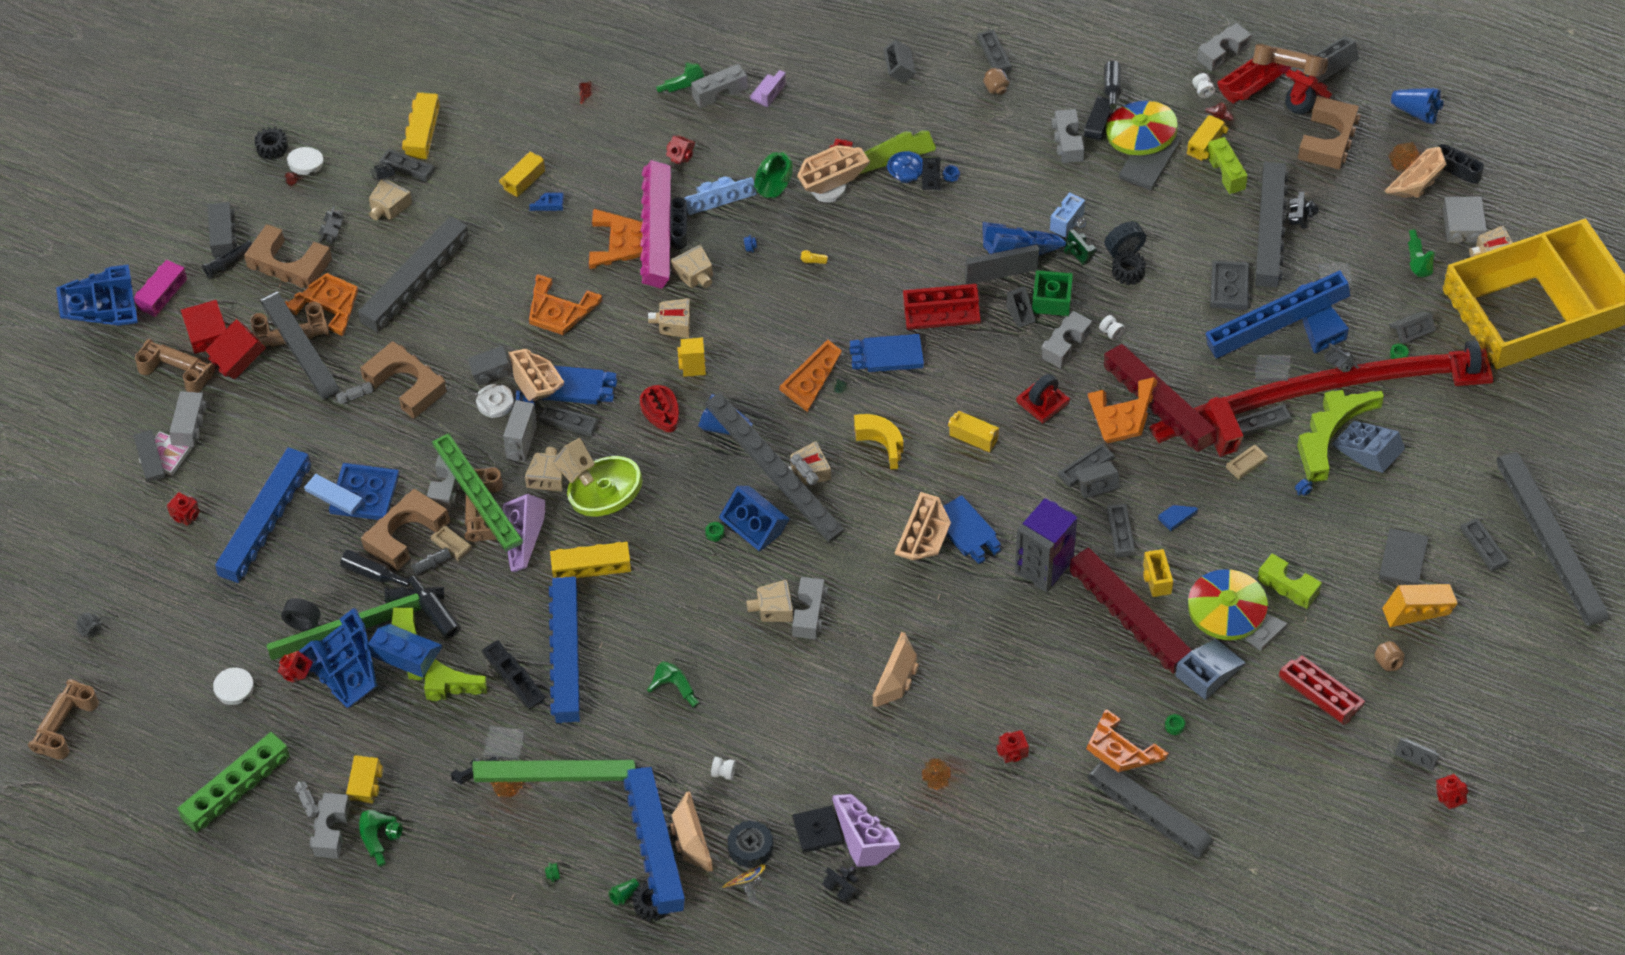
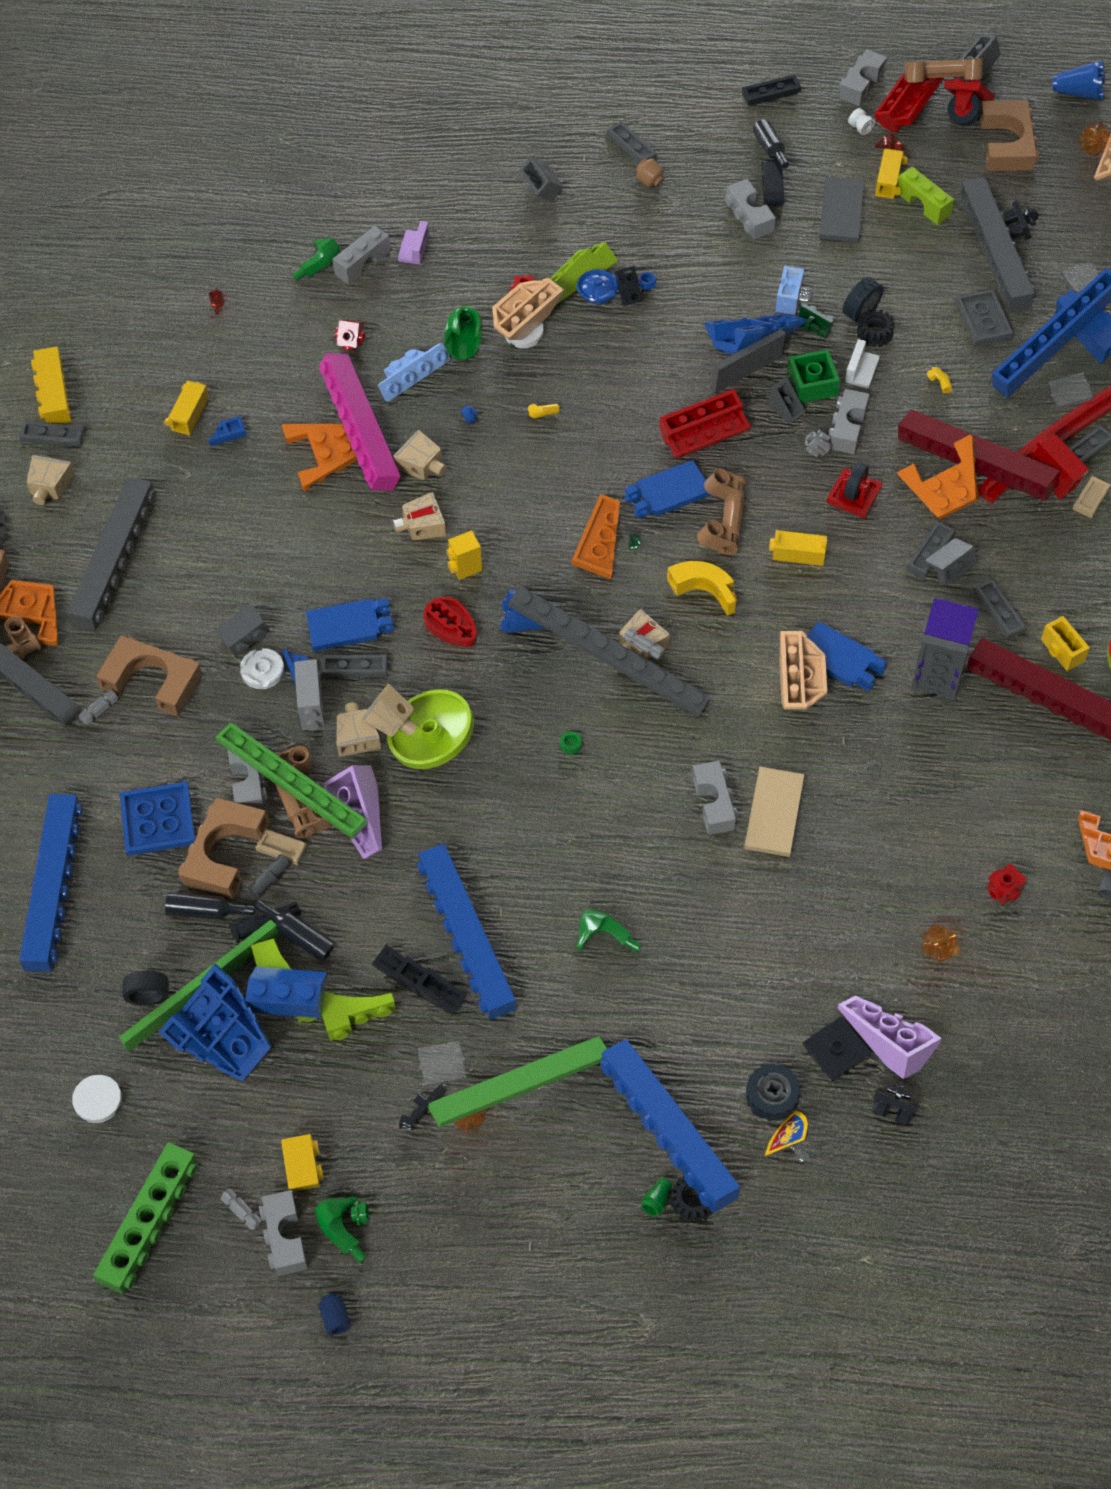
camera: 20 degrees left, 5 degrees up
(294, 666) = (163, 1053): red brick -> none
(333, 494) = (125, 833): light blue tile -> none
(343, 895) = (334, 1314): none -> dark blue brick
(382, 171) = (29, 448): black plate -> none
(534, 374) = (297, 627): light nougat wedge -> none
(552, 872) = (565, 1201): green plate -> none
(556, 313) = (289, 550): orange wing -> none
(591, 560) = (450, 819): yellow brick -> none
(678, 223) = (383, 413): black beam -> none
(689, 834) = (702, 1104): light nougat wedge -> none
(723, 768) = (703, 1013): white wheel -> none
(753, 517) = (608, 714): blue slope -> none
(773, 603) = (673, 804): tan torso -> none
(854, 634) = (774, 811): none -> tan tile
(897, 673) = (843, 839): light nougat wedge -> none
(939, 372) = (724, 534): none -> medium nougat piece
(1030, 350) = (817, 443): none -> light grey gear
(1100, 296) = (861, 366): none -> white panel
(1112, 328) = (889, 395): white wheel -> none
(1138, 36) = (771, 90): none -> black plate
(1141, 128) = (821, 180): dish -> none
(1163, 321) = (942, 377): none -> yellow arm
(1176, 516) = (1048, 576): blue tile -> none

